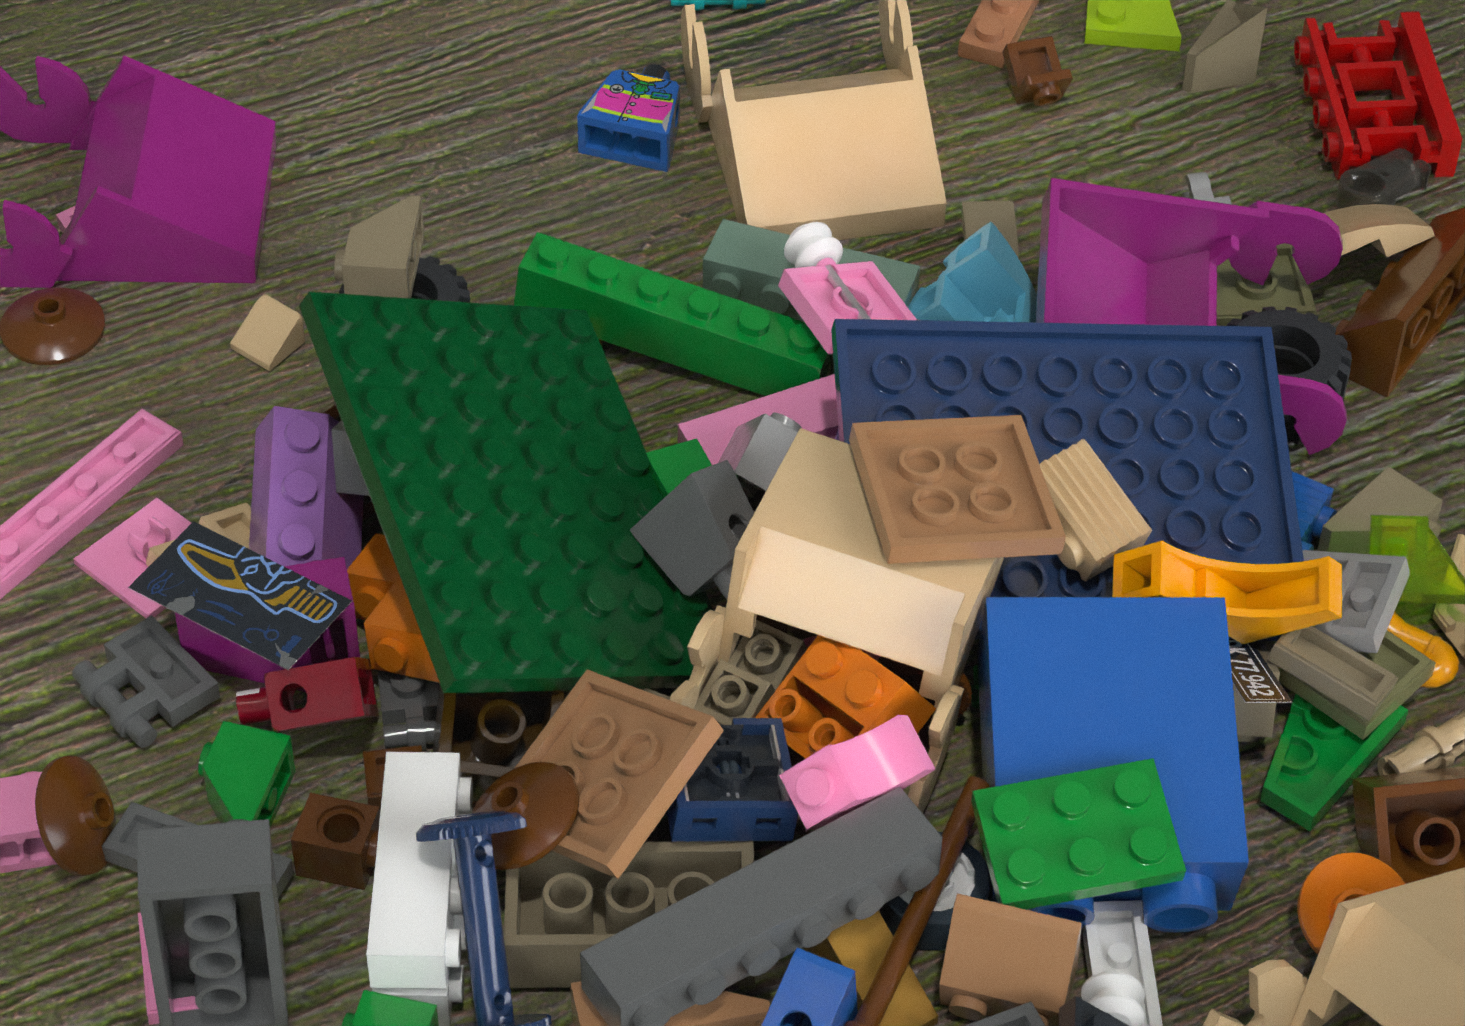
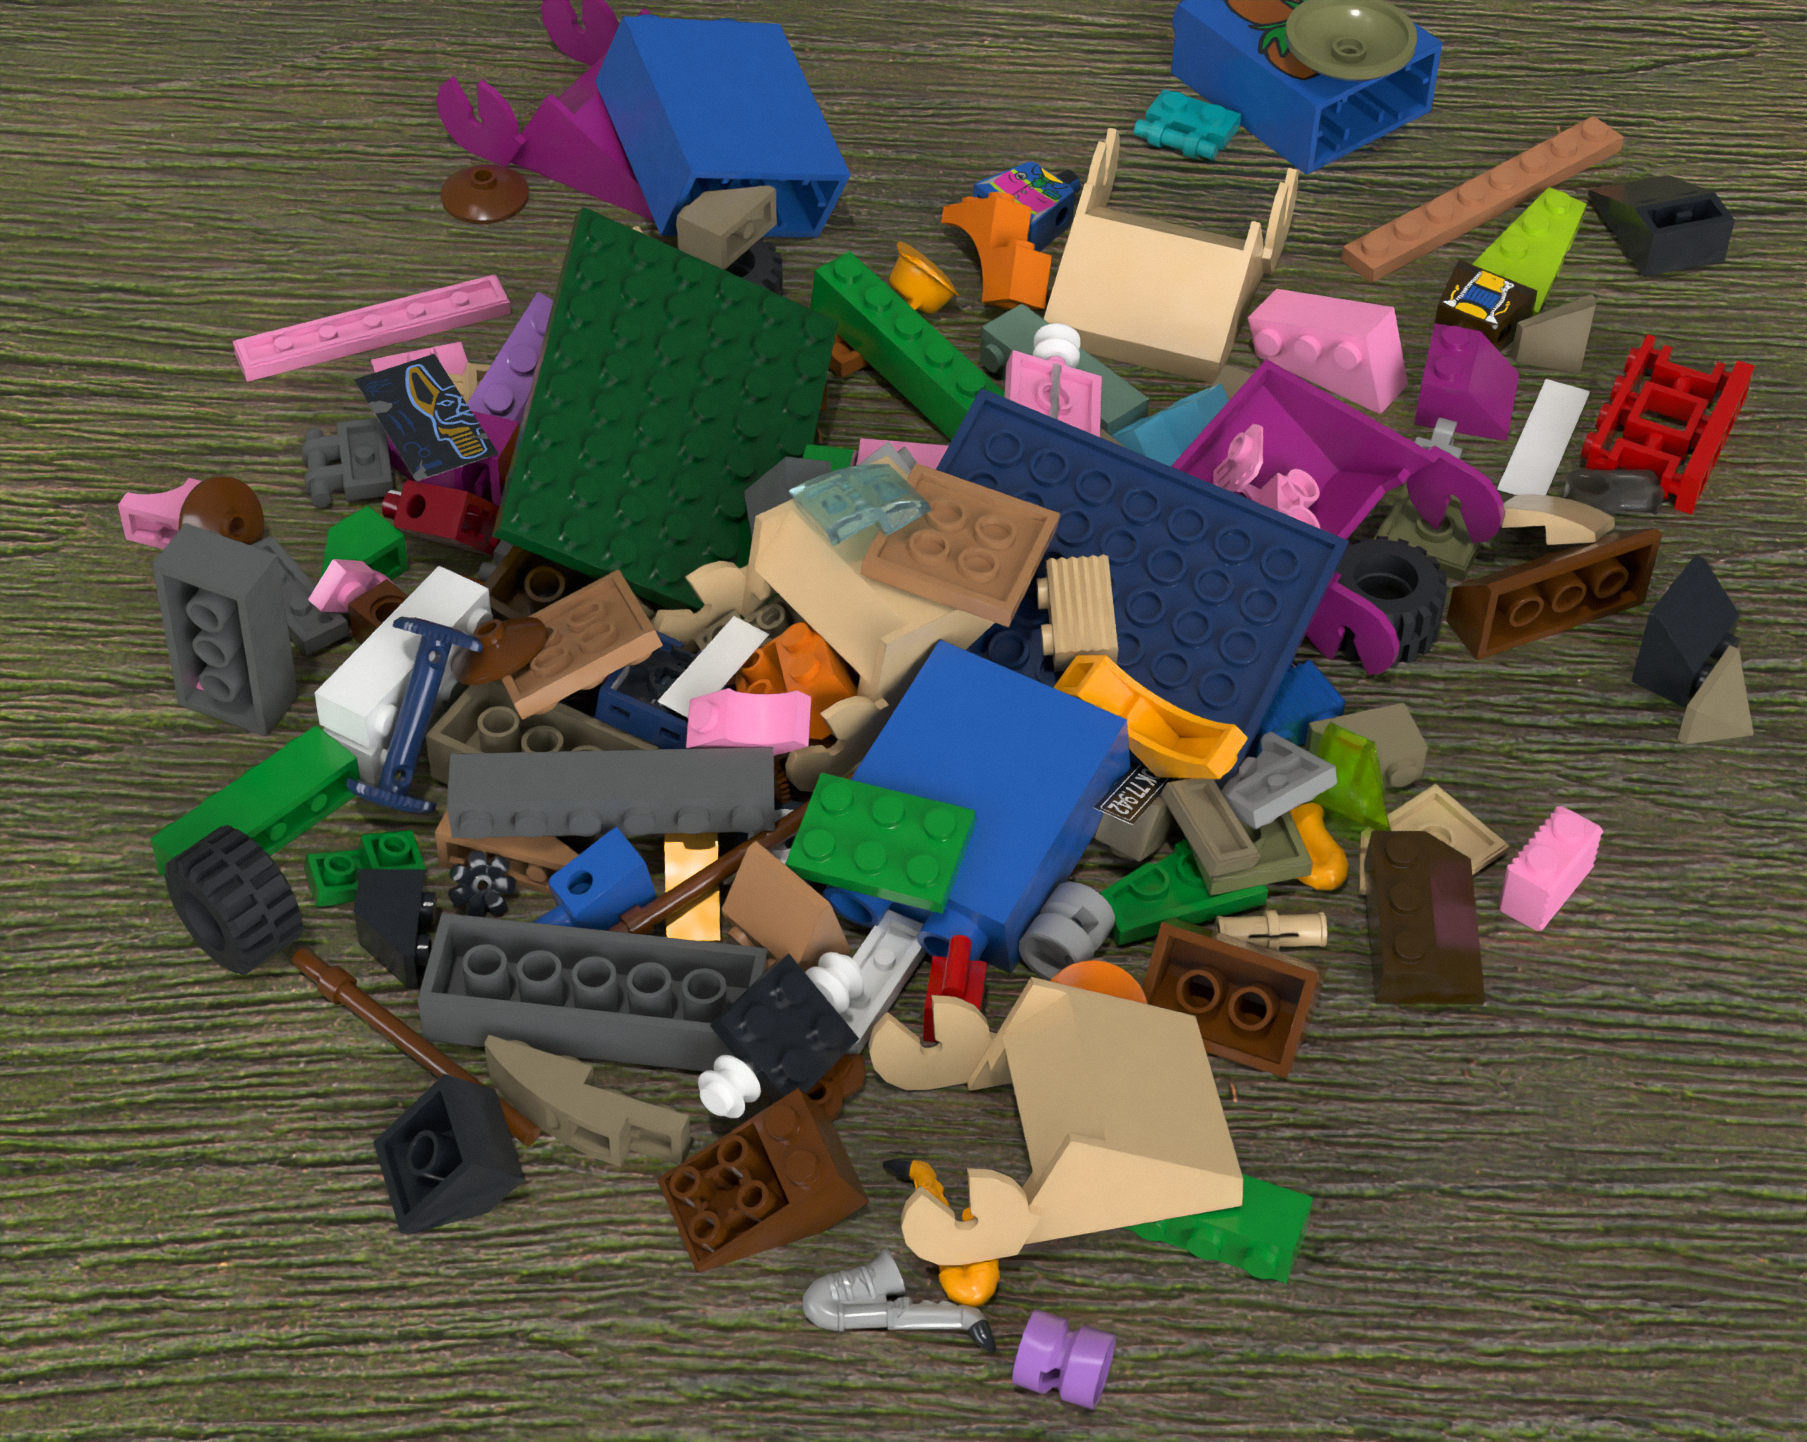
camera: 30 degrees right, 0 degrees up
(283, 810) = (343, 584): none -> bright pink plate
(289, 146) = (720, 112): none -> blue brick
(599, 234) = (920, 281): none -> light orange piece
(685, 188) = (1009, 263): none -> orange arch
(761, 730) = (714, 664): none -> white sticker
(839, 488) = (857, 497): none -> clear light blue slope
(1031, 139) = (1334, 344): none -> bright pink wedge
(1036, 71) = (1388, 286): reddish brown bracket -> none
(1116, 295) = (1285, 494): none -> bright pink piece
(1131, 56) = (1485, 303): none -> torso
(1173, 133) = (1467, 384): none -> magenta slope
(1216, 959) = (956, 978): none -> red brick
(1273, 151) = (1543, 439): none -> white sticker
(1275, 843) = (1067, 930): none -> light grey wheel

